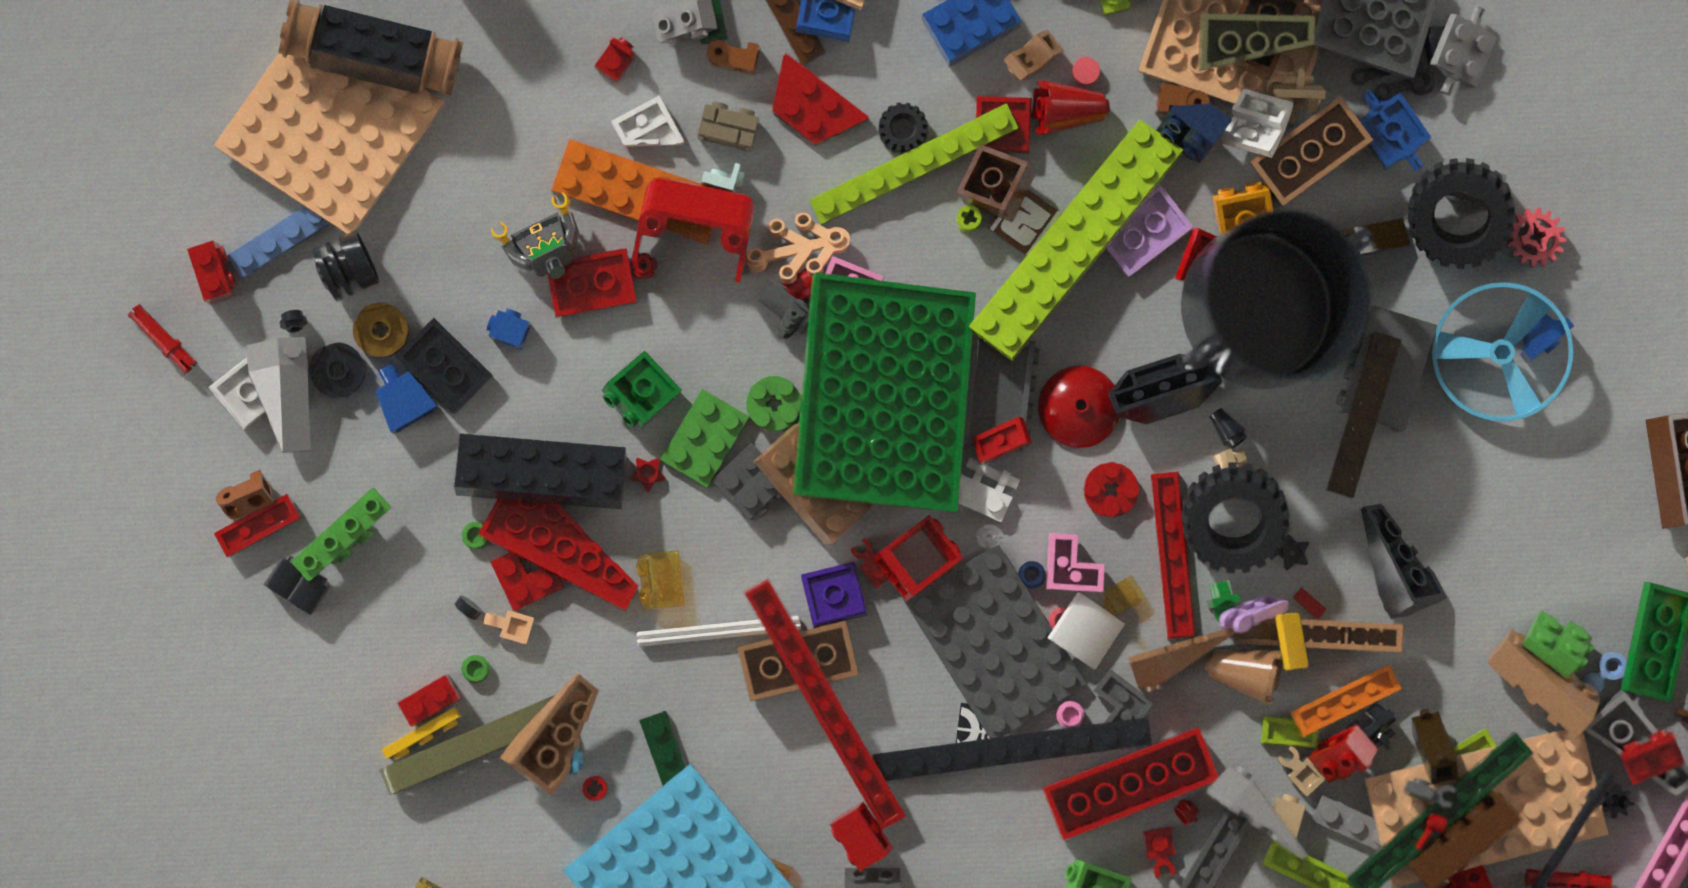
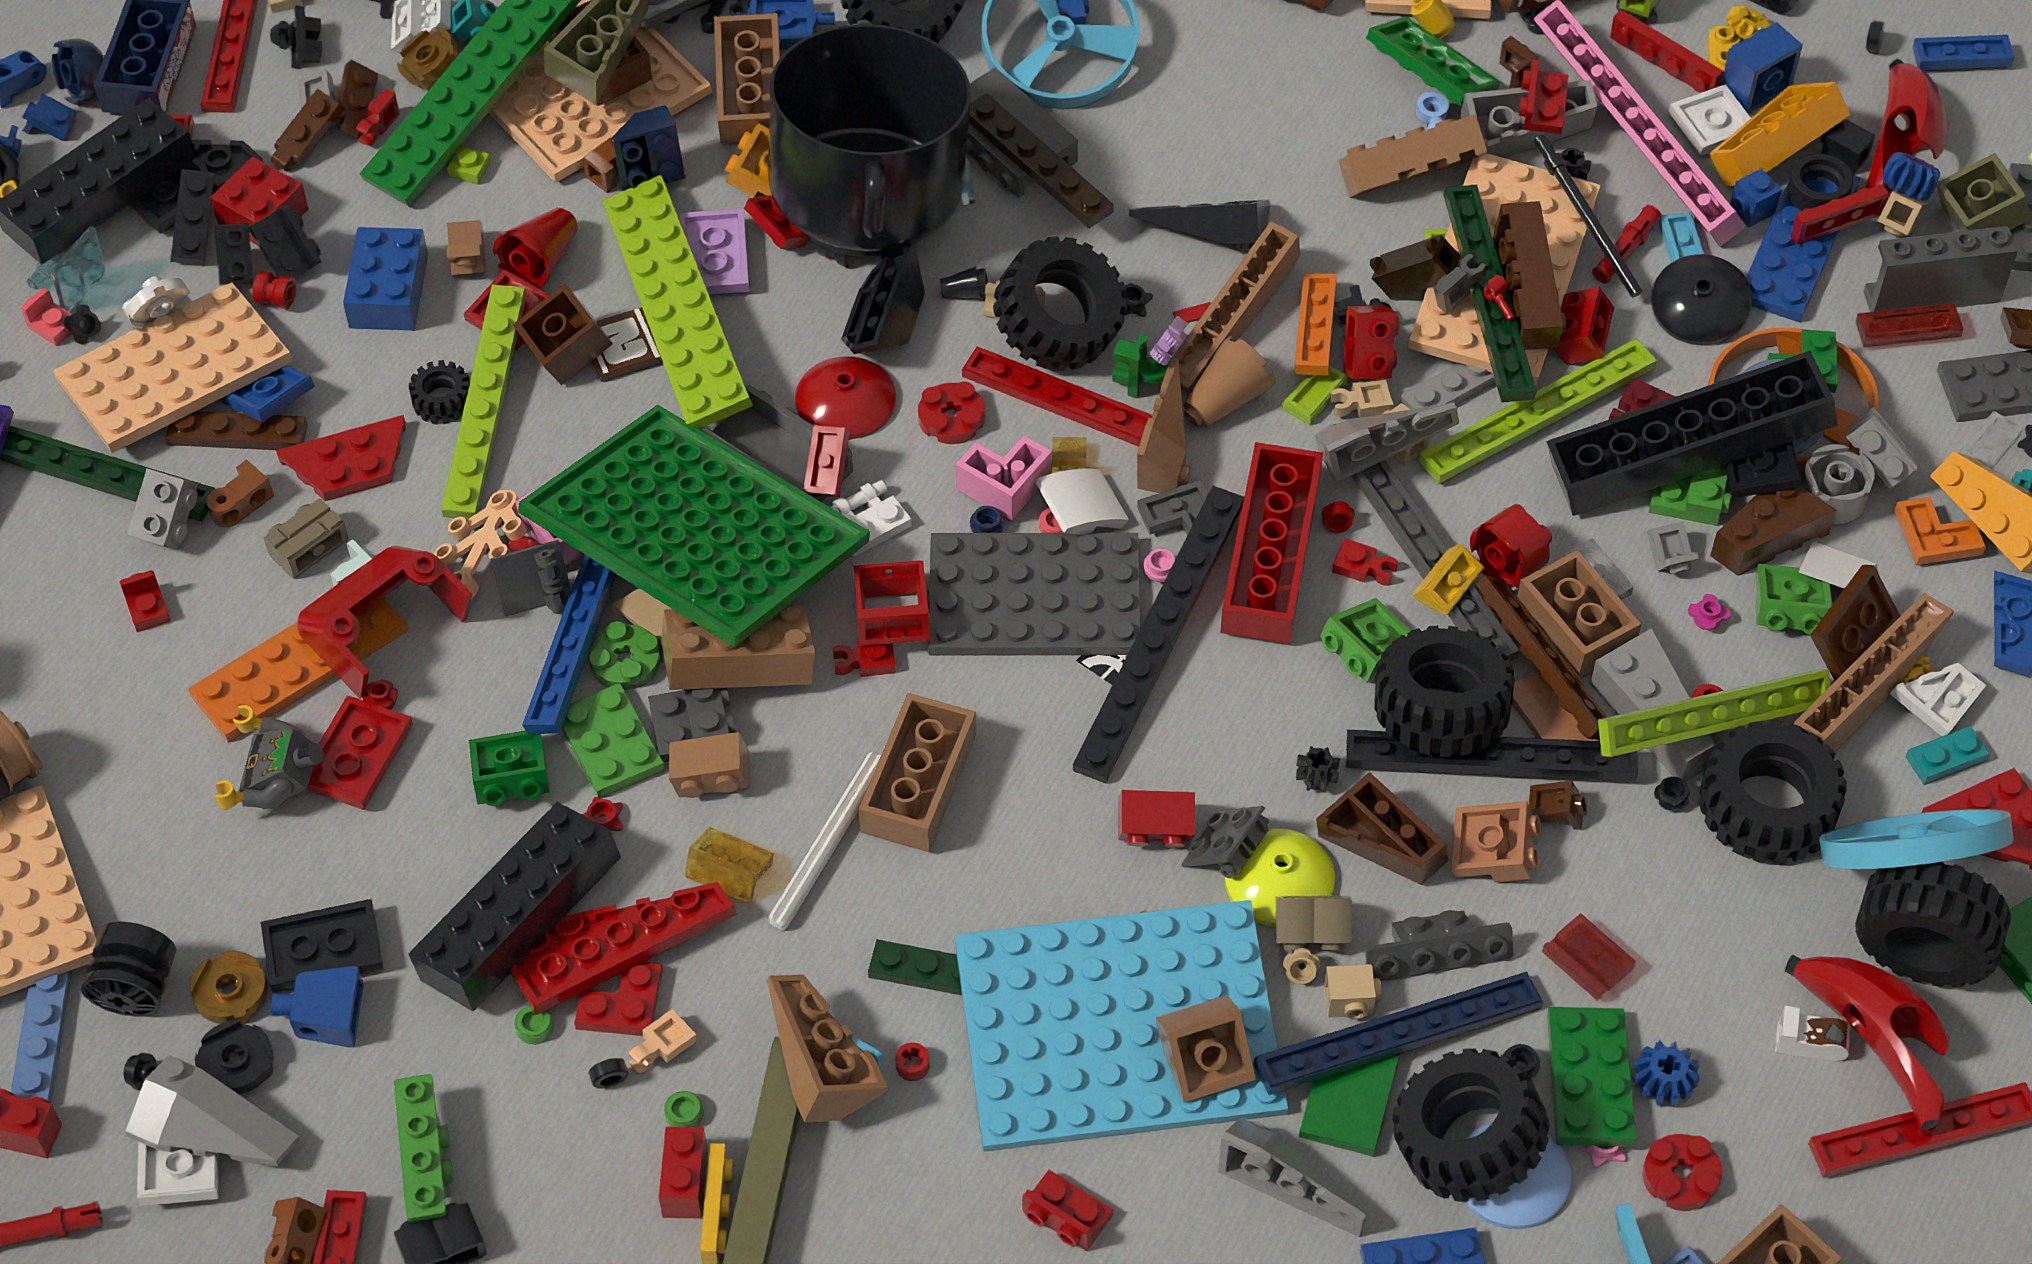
camera: 60 degrees left, 30 degrees down
(509, 328) = (336, 856): blue brick -> none
(648, 126) = (240, 609): white wing -> none
(720, 521) = (709, 765): none -> medium nougat brick
(740, 372) = (569, 649): none -> blue plate
(824, 703) = (979, 753): red plate -> none
(834, 595) = (869, 706): dark purple plate -> none
(965, 212) = (578, 381): lime bush -> none
(992, 542) = (918, 537): clear plate -> none
(1085, 71) = (515, 216): coral tile -> none
(1257, 123) = (688, 96): white slope -> none
(1291, 641) = (1219, 327): yellow slope -> none
(1311, 94) = (680, 55): tan hips -> none
(1557, 645) = (1385, 121): bright green plate -> none

